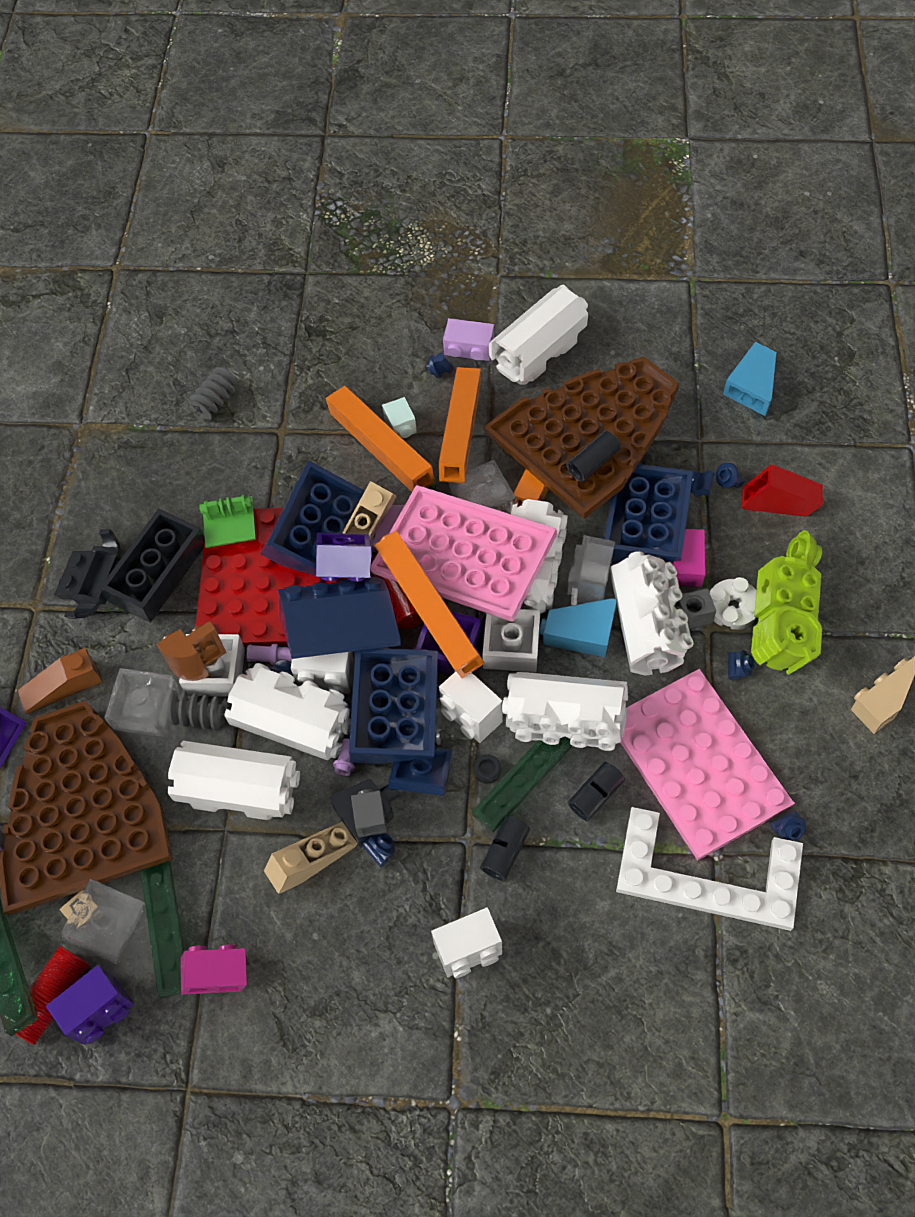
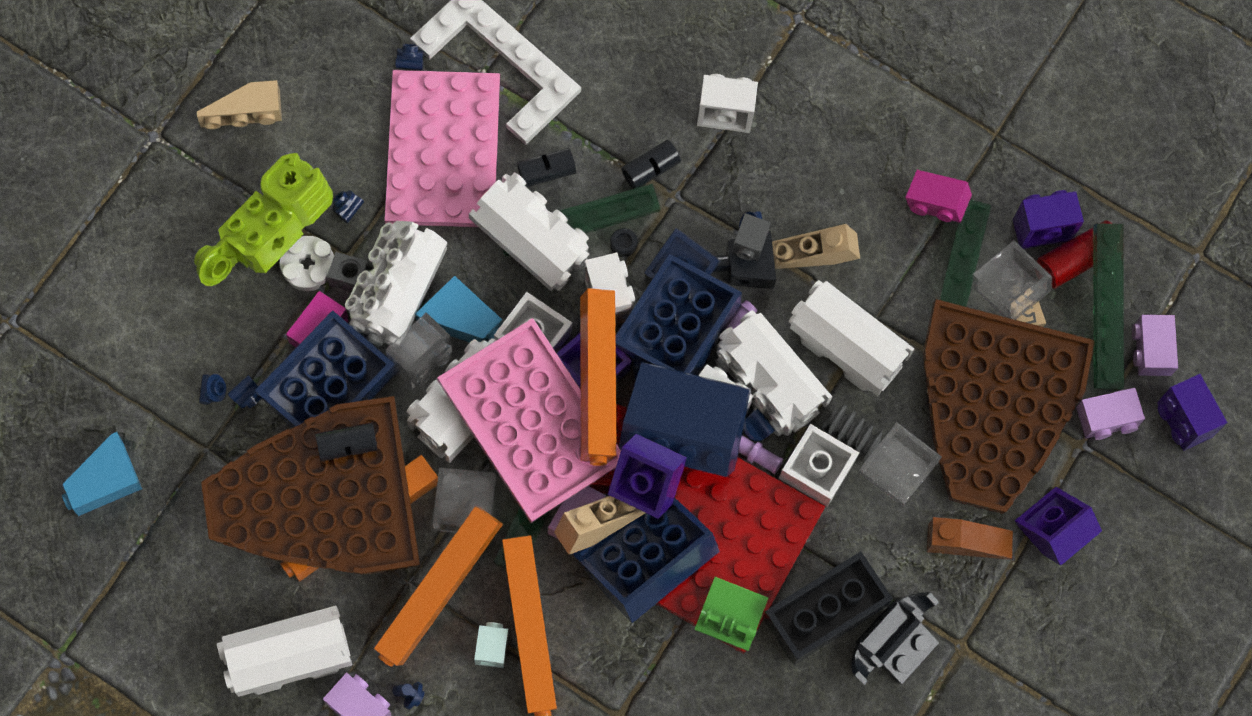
camera: 160 degrees left, 10 degrees up
(192, 653) = (843, 452): dark orange brick -> none
(782, 493) = (183, 334): red slope -> none

